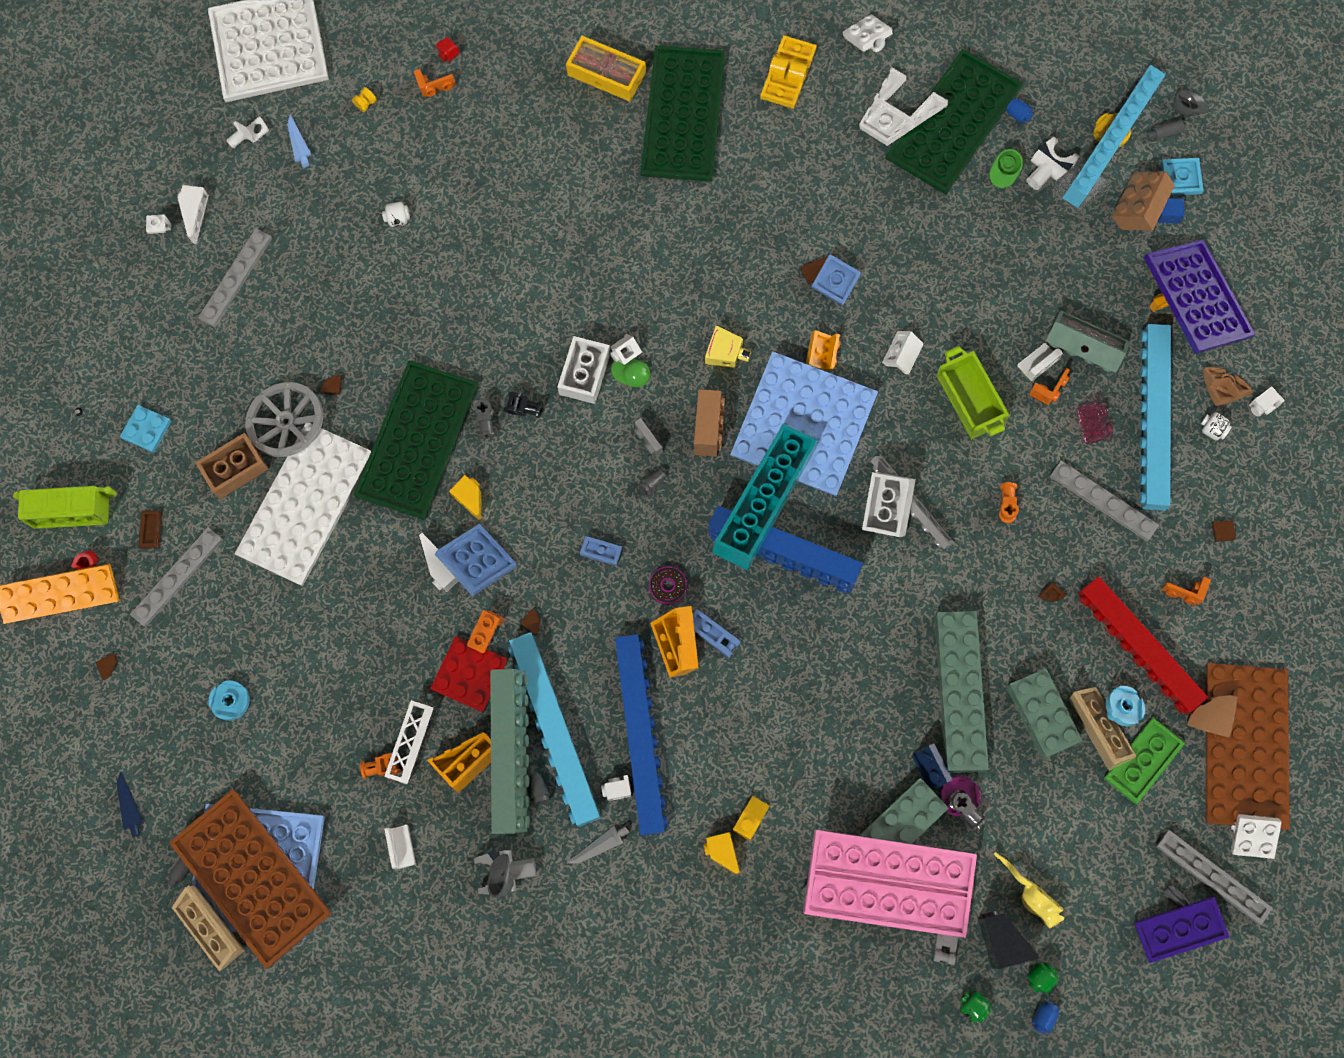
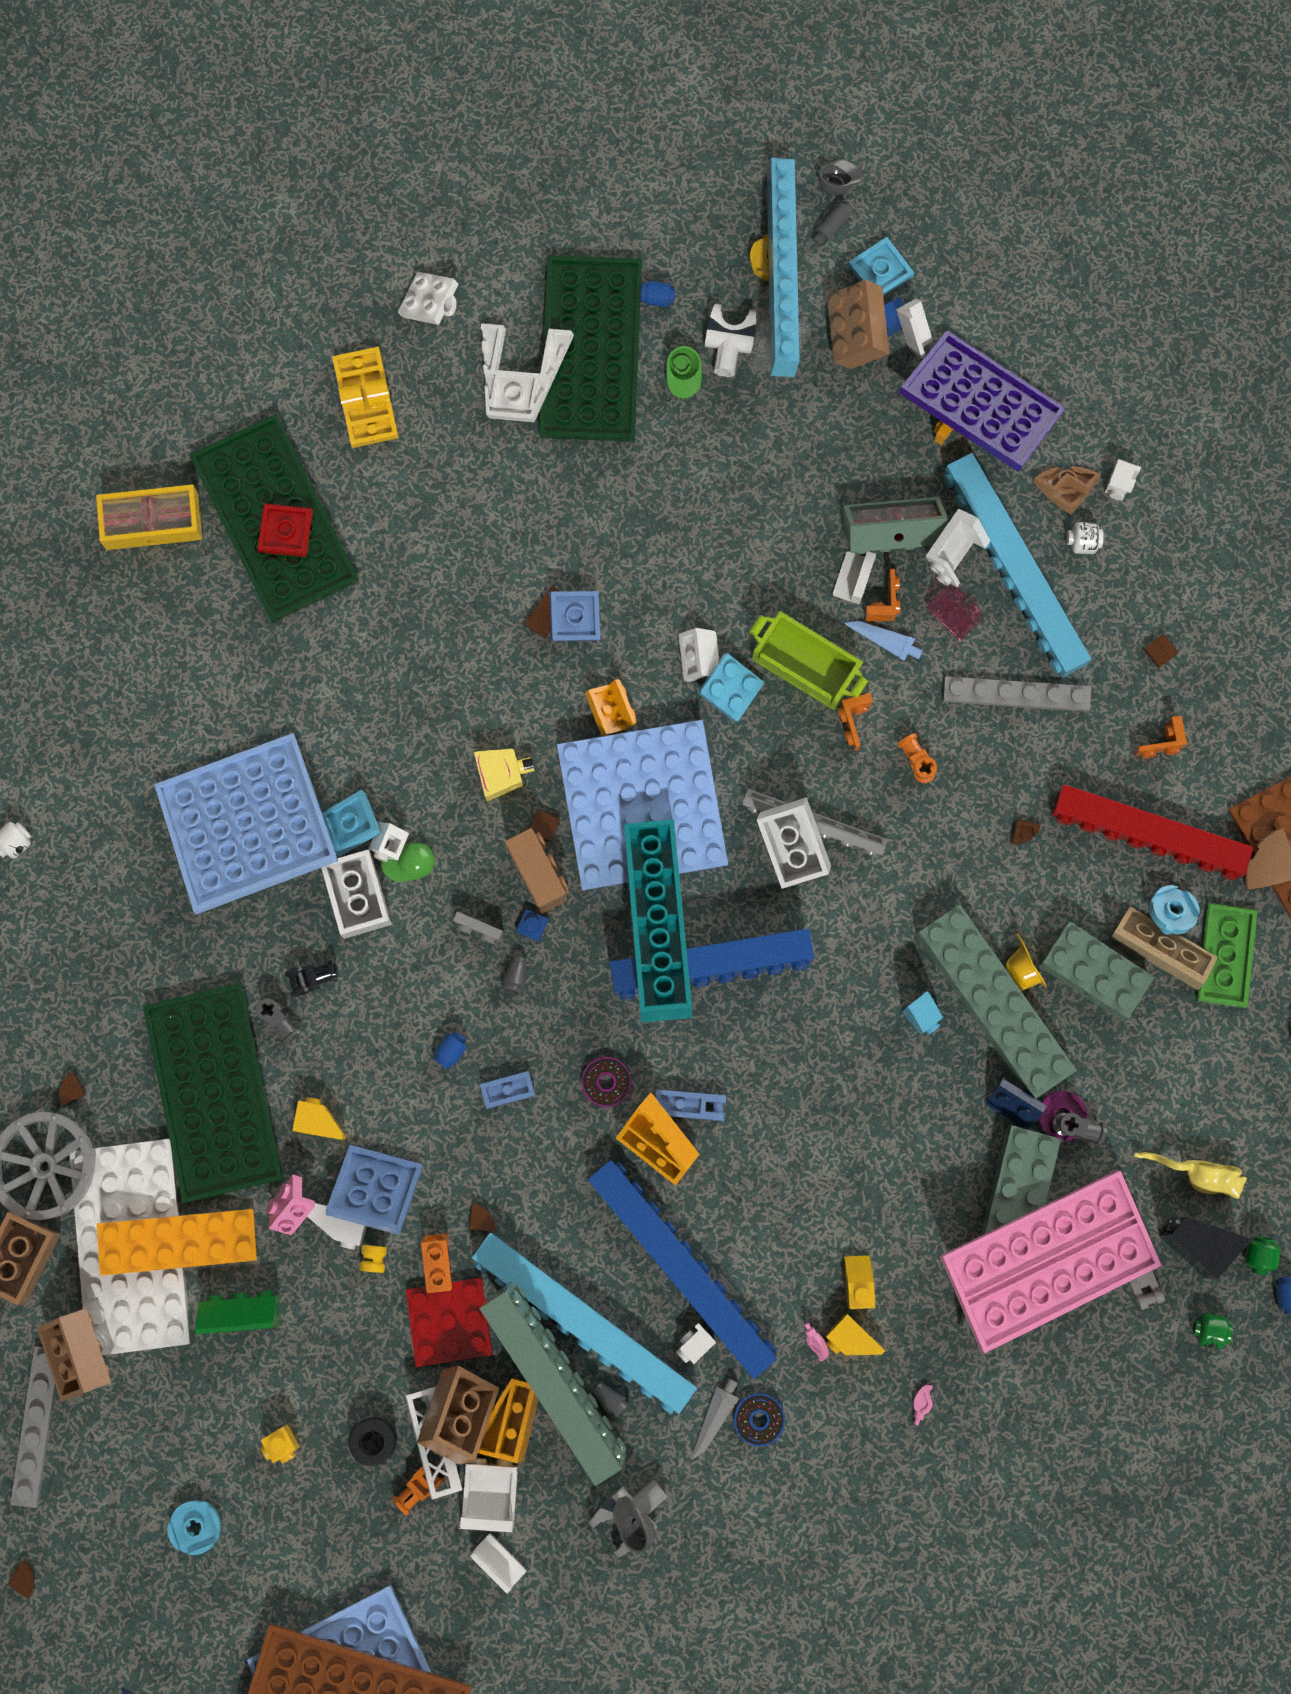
camera: 40 degrees left, 5 degrees up
(226, 544) = (74, 1354): none -> medium nougat brick
(313, 682) = (279, 1445): none -> yellow brick
(333, 515) = (176, 1242): none -> light orange plate
(342, 584) = (238, 1313): none -> green slope
(367, 706) = (356, 1445): none -> black tyre
(416, 537) = (289, 1207): none -> bright pink bracket
(423, 800) = (489, 1495): none -> white panel
(435, 733) = (458, 1415): none -> medium nougat brick
(447, 603) = (373, 1258): none -> yellow wheel
(543, 285) = (245, 823): none -> light blue plate
(581, 503) = (450, 1049): none -> blue brick
(609, 324) = (351, 823): none -> medium azure plate
(627, 853) = (759, 1435): none -> tile
(684, 458) = (532, 925): none -> blue plate
(685, 123) = (285, 530): none -> red tile
(697, 839) = (816, 1342): none -> bright pink piece
(733, 400) = (545, 825): none -> reddish brown tile
(743, 926) = (922, 1403): none -> bright pink piece
(906, 668) = (923, 1014): none -> medium azure slope
(910, 383) = (730, 687): none -> medium azure plate
(988, 444) = (858, 706): none -> orange bracket
(992, 681) = (1022, 969): none -> yellow piece
(1038, 417) = (891, 641): none -> light blue bar
(1120, 375) = (953, 545): none -> white panel
(1182, 223) = (915, 327): none -> white panel

